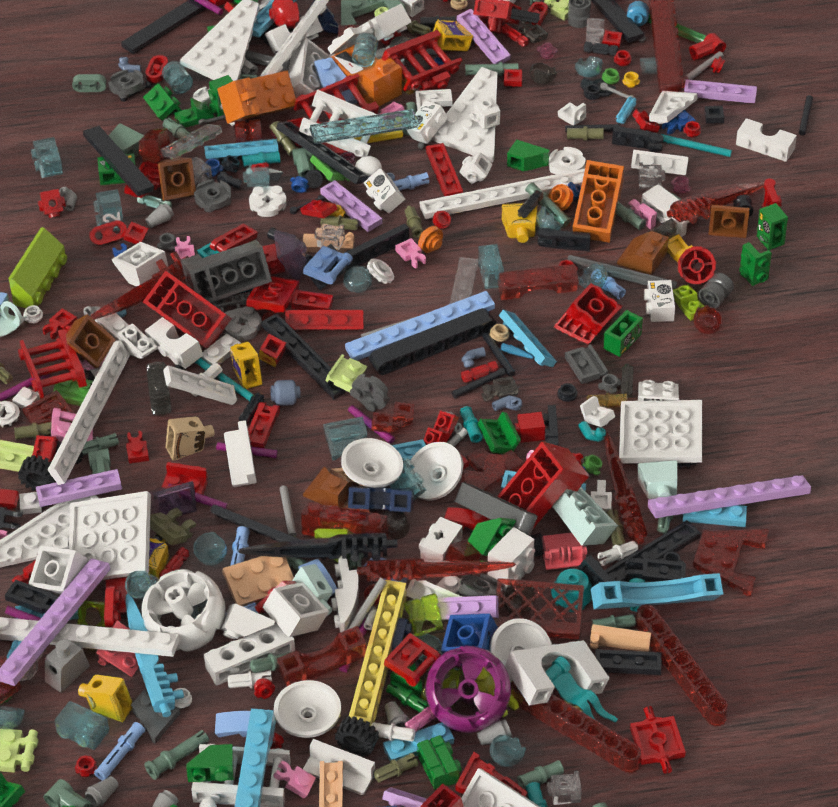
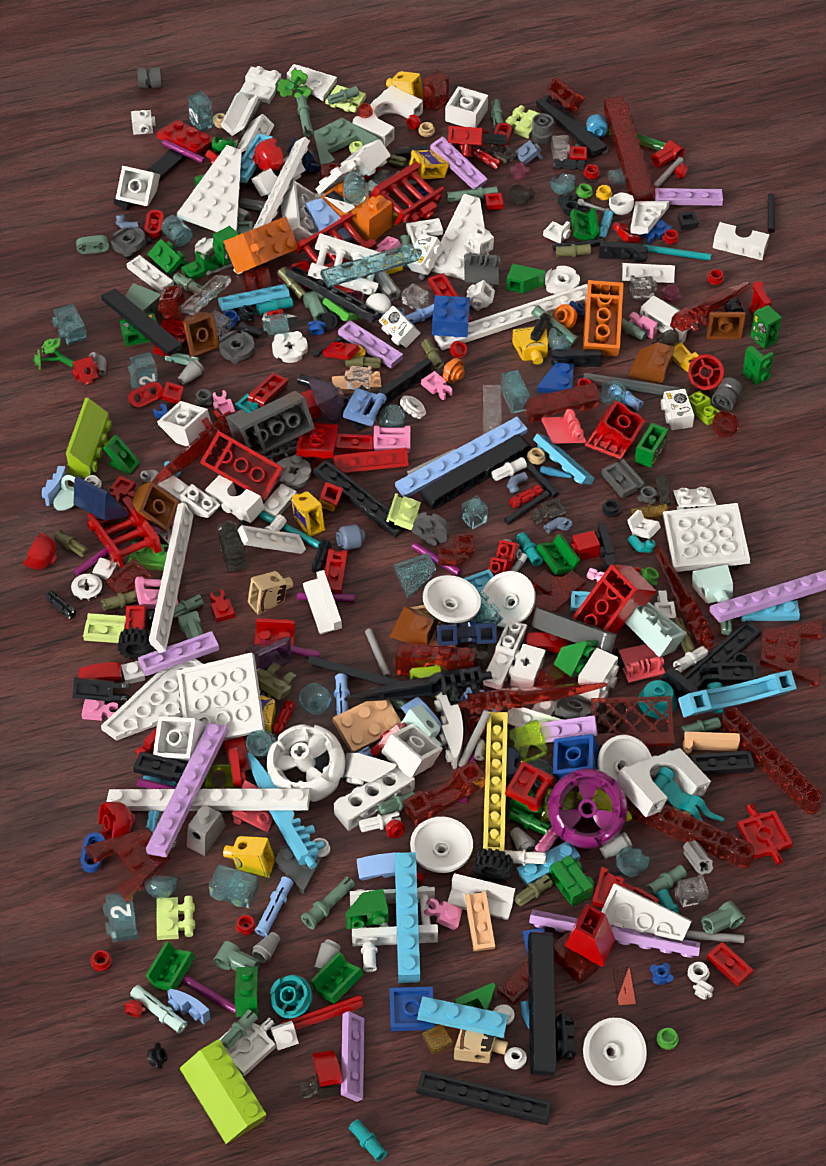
camera: 10 degrees left, 5 degrees up
(21, 177) = (49, 347): none -> plant
(30, 329) = (96, 500): none -> dark blue slope
(69, 290) = (121, 455): none -> green slope
(140, 115) = (149, 273): none -> white tile
(147, 30) = (137, 186): none -> white slope
(352, 299) = (391, 438): none -> bright pink plate
(381, 149) = (387, 285): none -> light grey axle
(408, 164) = (415, 297): none -> clear brick
(420, 381) = (474, 512): none -> clear light blue brick
(420, 522) = (505, 653): none -> white slope
(439, 185) = (451, 316): none -> blue brick
(467, 342) = (509, 469): none -> white axle
(483, 141) = (481, 268): none -> dark grey hinge
(535, 309) = (564, 429): none -> coral hinge
(540, 257) = (557, 379): none -> blue wing
(560, 32) = (528, 152): none -> sand blue bracket
(578, 754) = (698, 857): none -> light grey axle
(603, 109) = (585, 225): none -> green bracket
(646, 91) = (621, 203): none -> white hair
(731, 173) = (715, 277): none -> red plate

